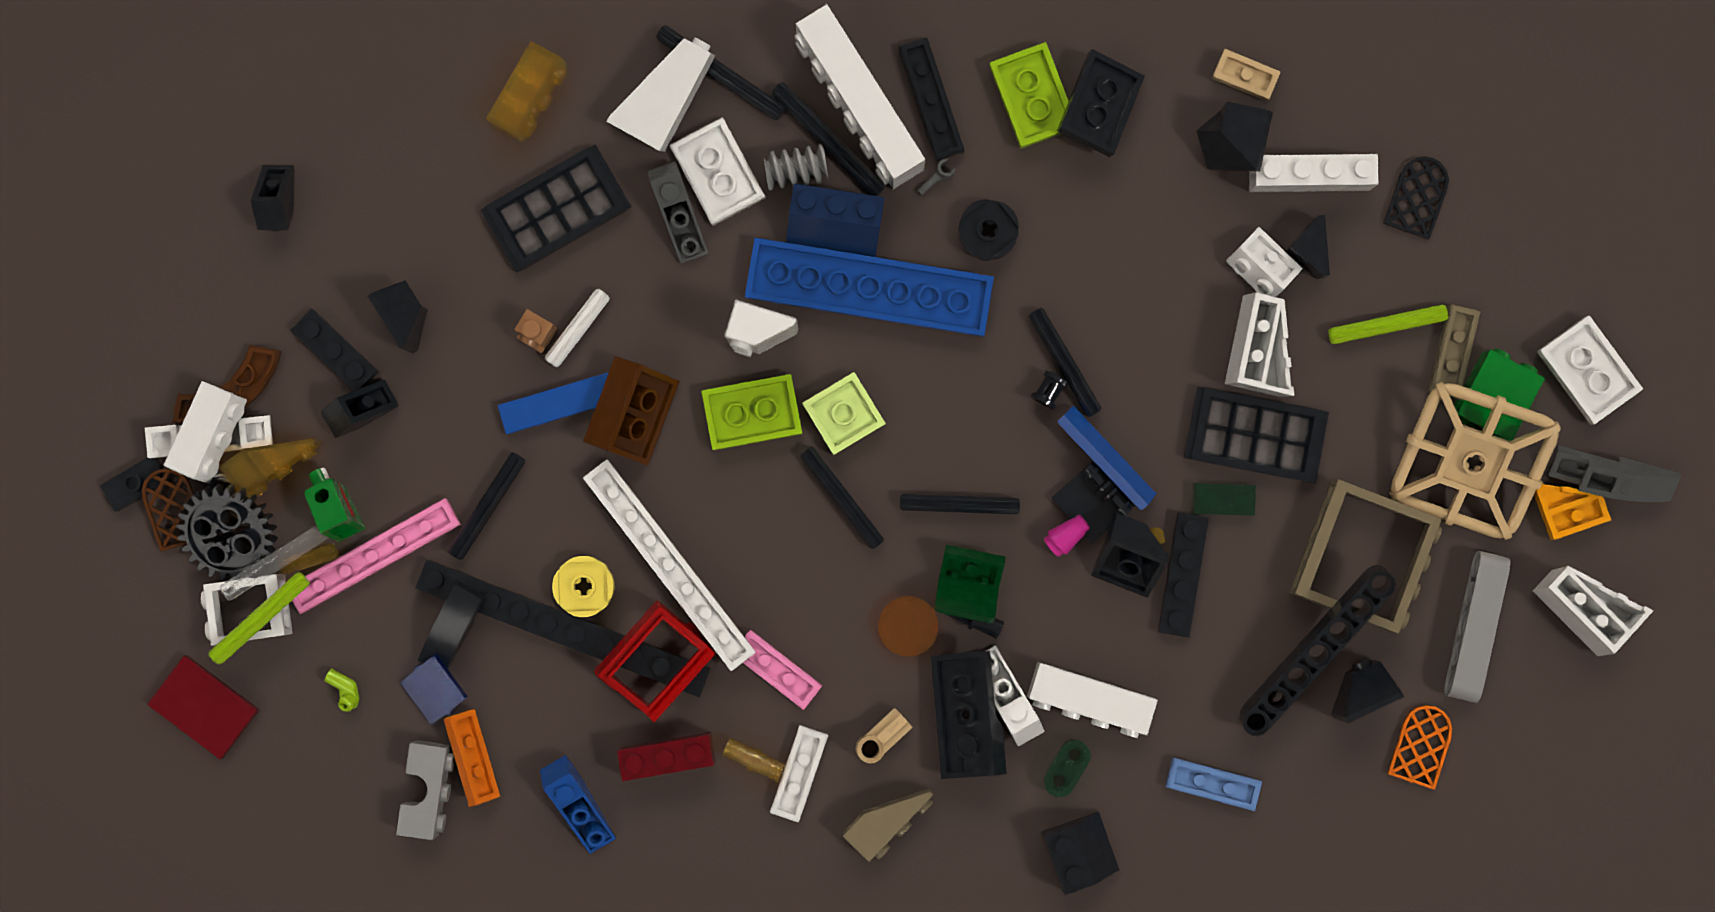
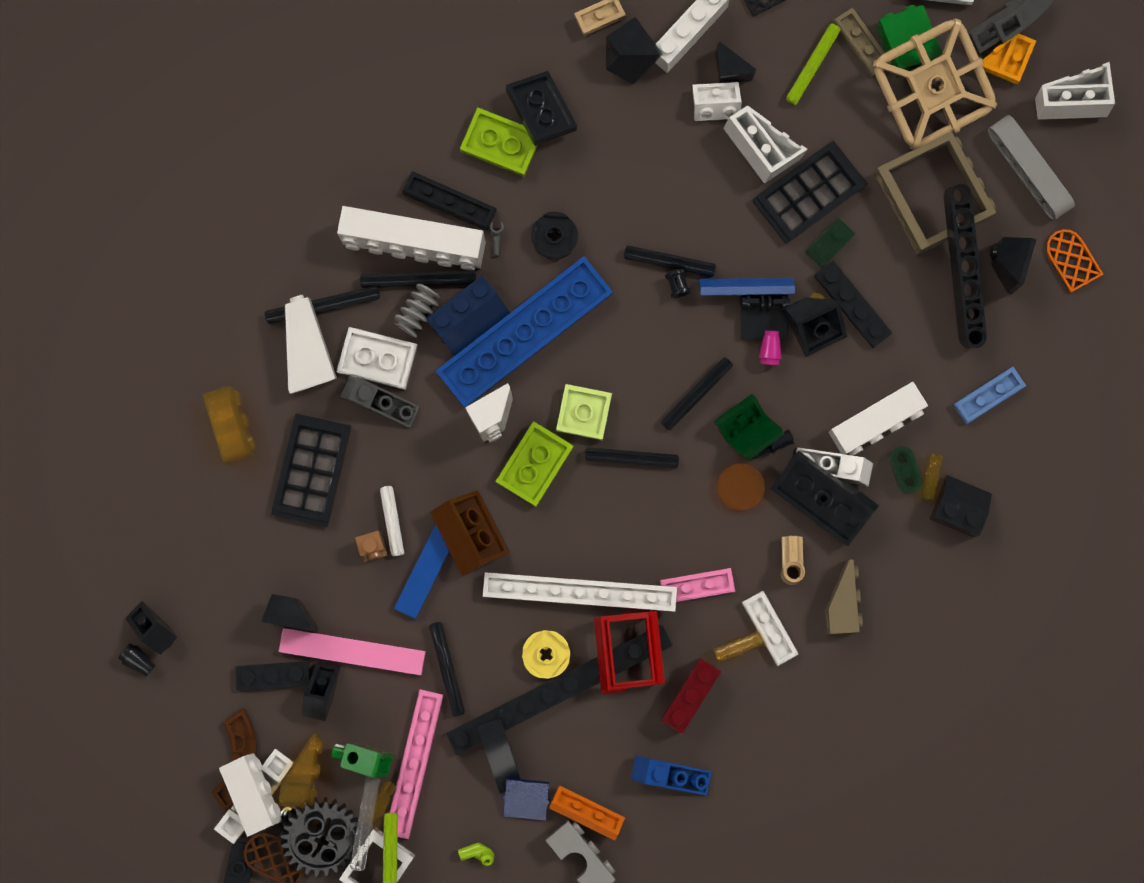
camera: 45 degrees left, 5 degrees down
(234, 211) = (136, 659): none -> black cone
(424, 405) = (352, 651): none -> bright pink tile
(1083, 798) = (932, 476): none -> clear yellow axle

